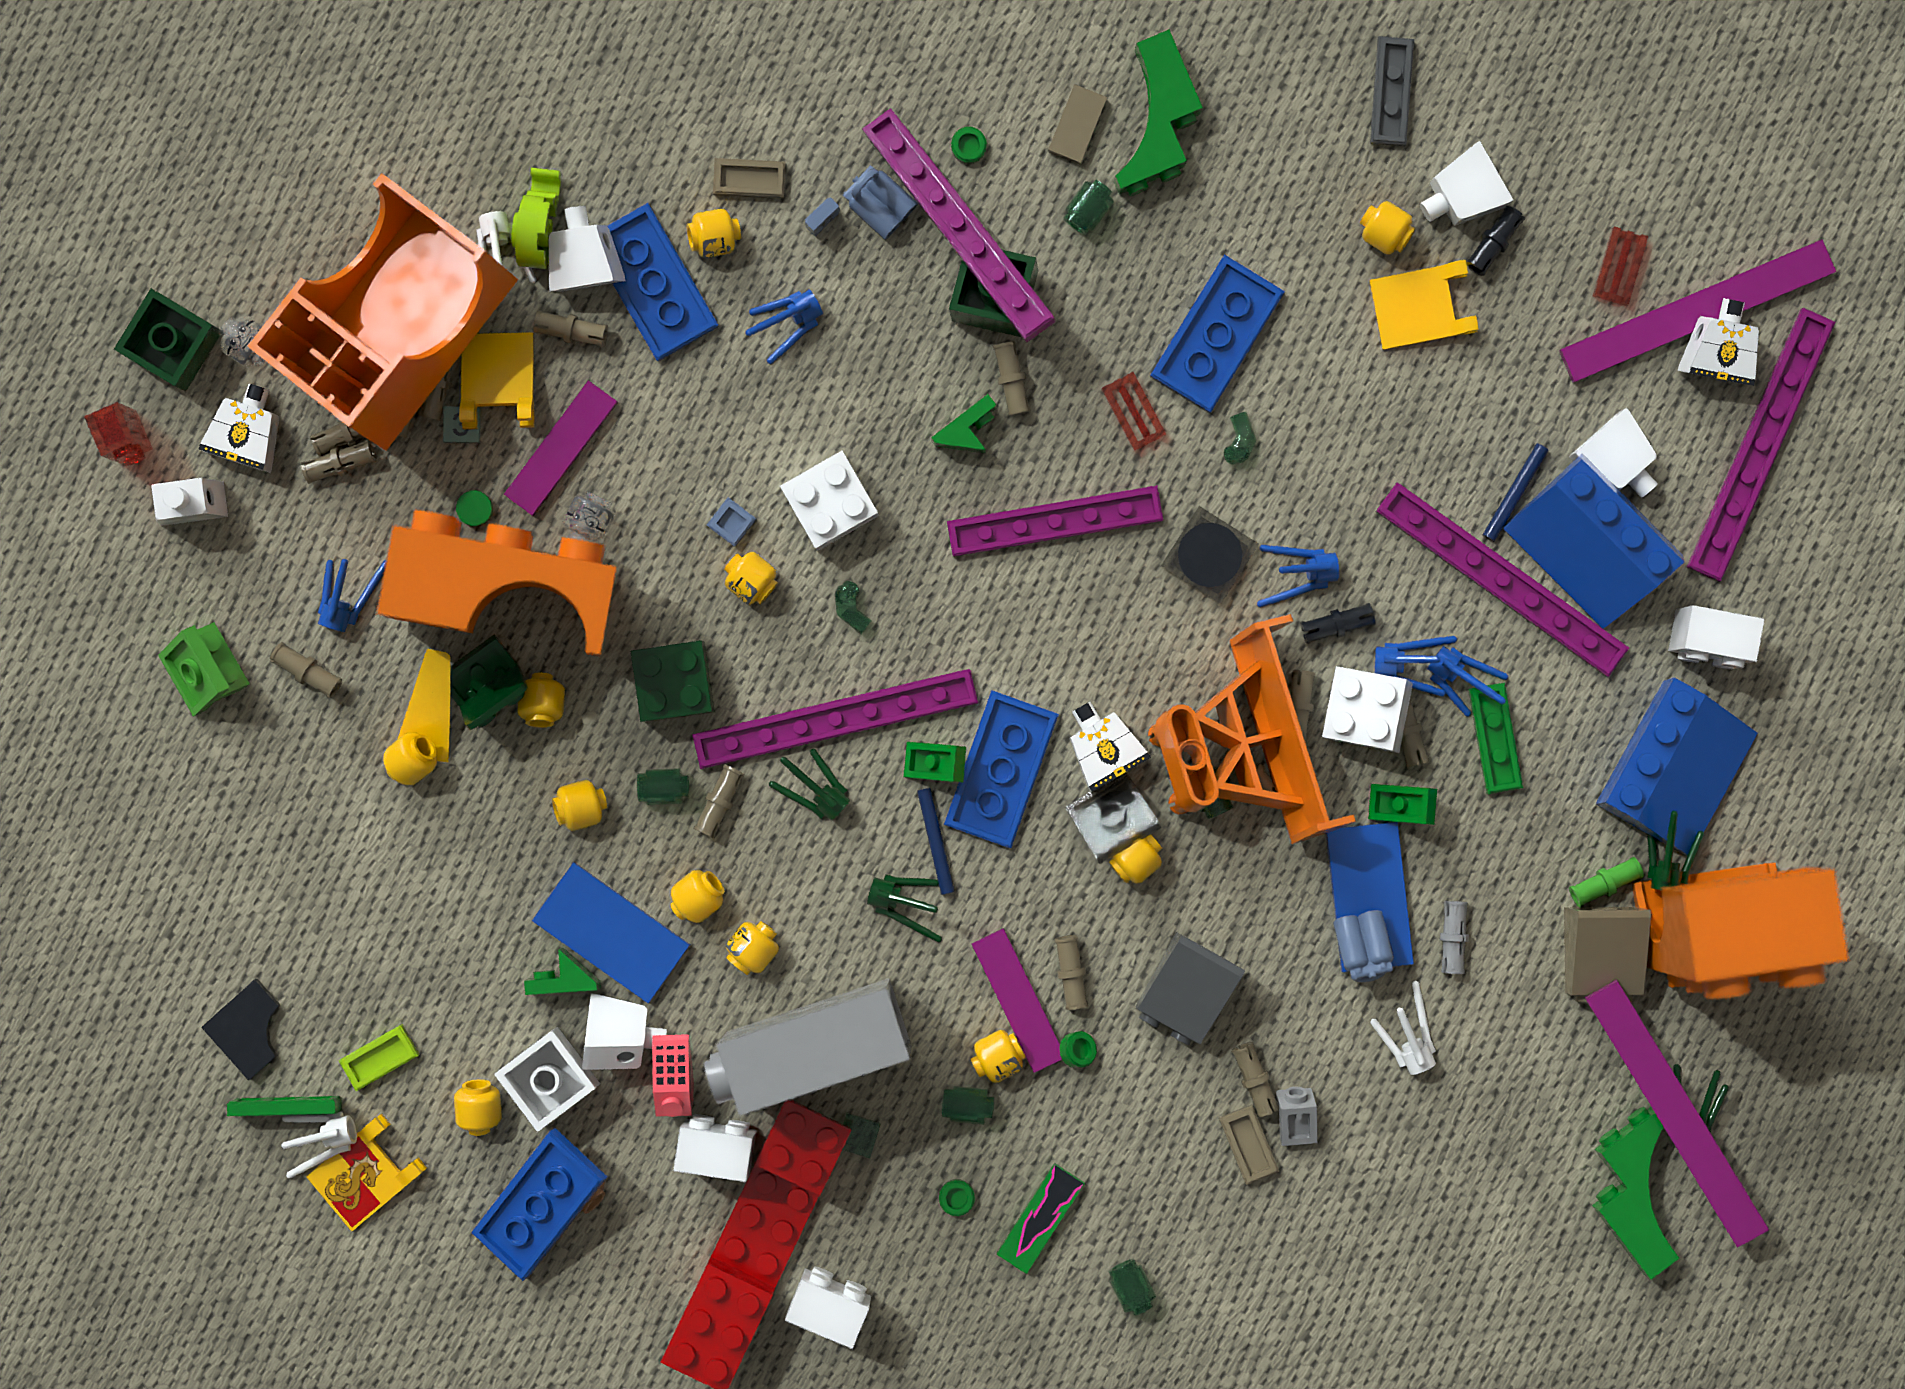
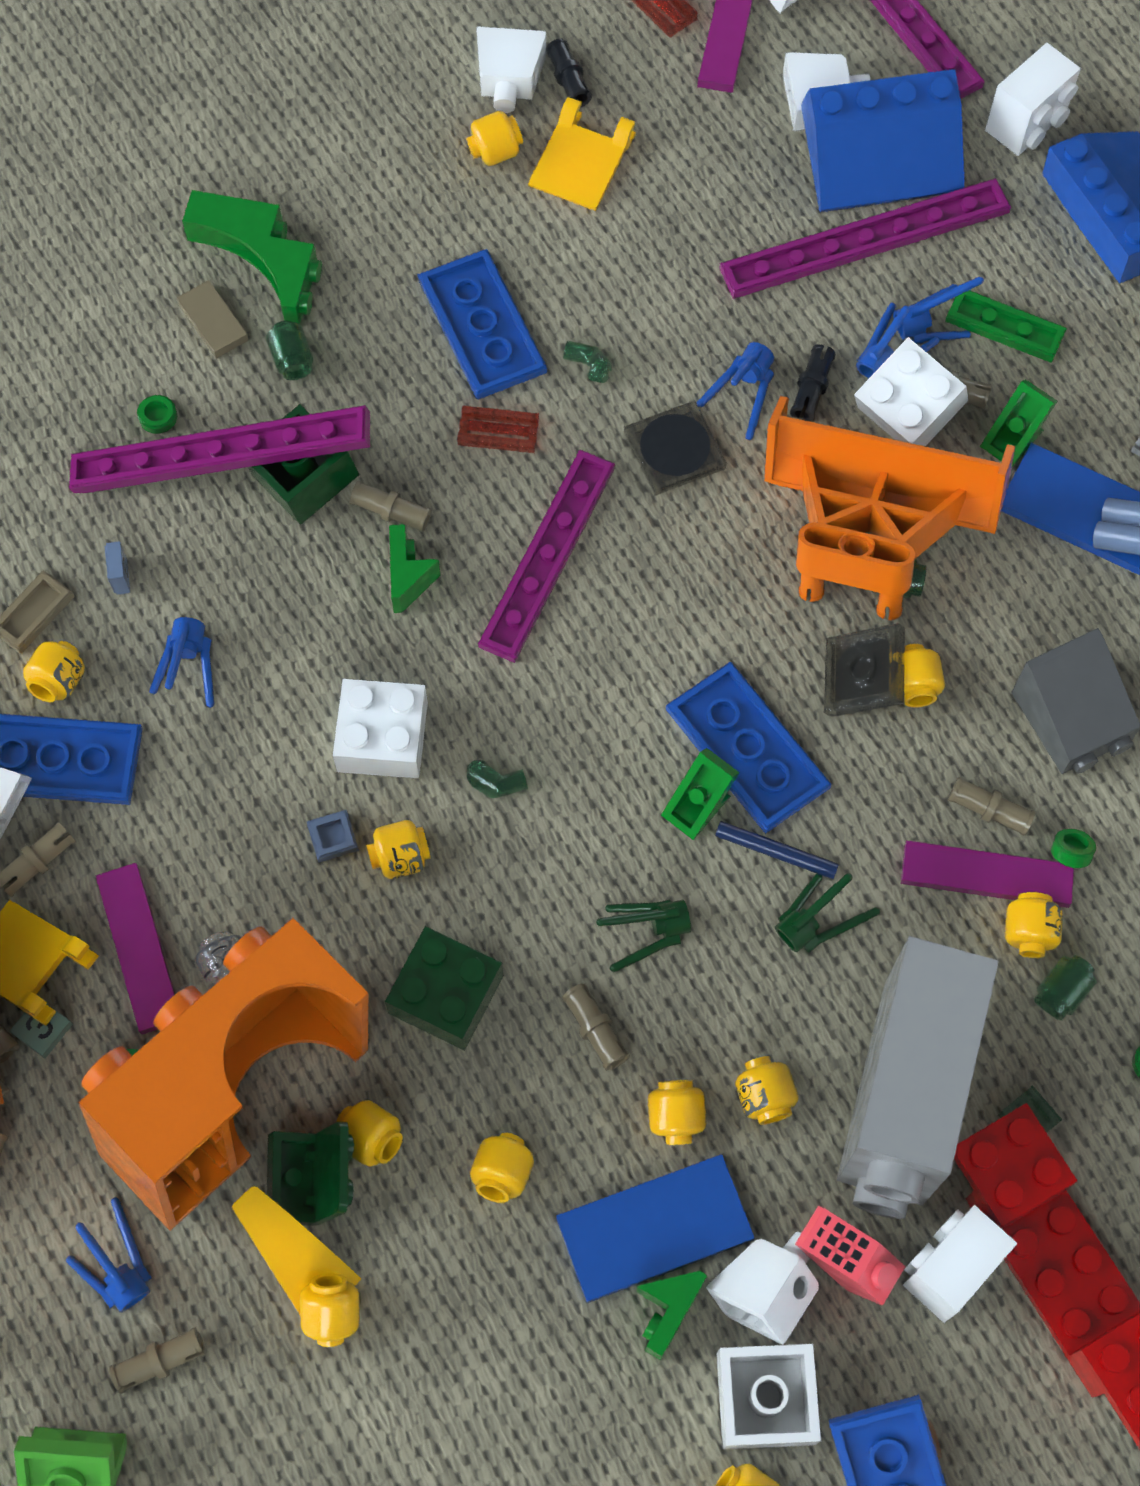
camera: 55 degrees left, 20 degrees down
(662, 786) = (542, 1071): clear green brick -> none
(835, 718) = (589, 869): magenta tile -> none
(879, 201) = (143, 514): sand blue piece -> none
(1104, 747) = (791, 639): torso -> none
(1391, 91) = (383, 75): dark grey tile -> none
(1515, 492) = (796, 184): dark blue bar -> none

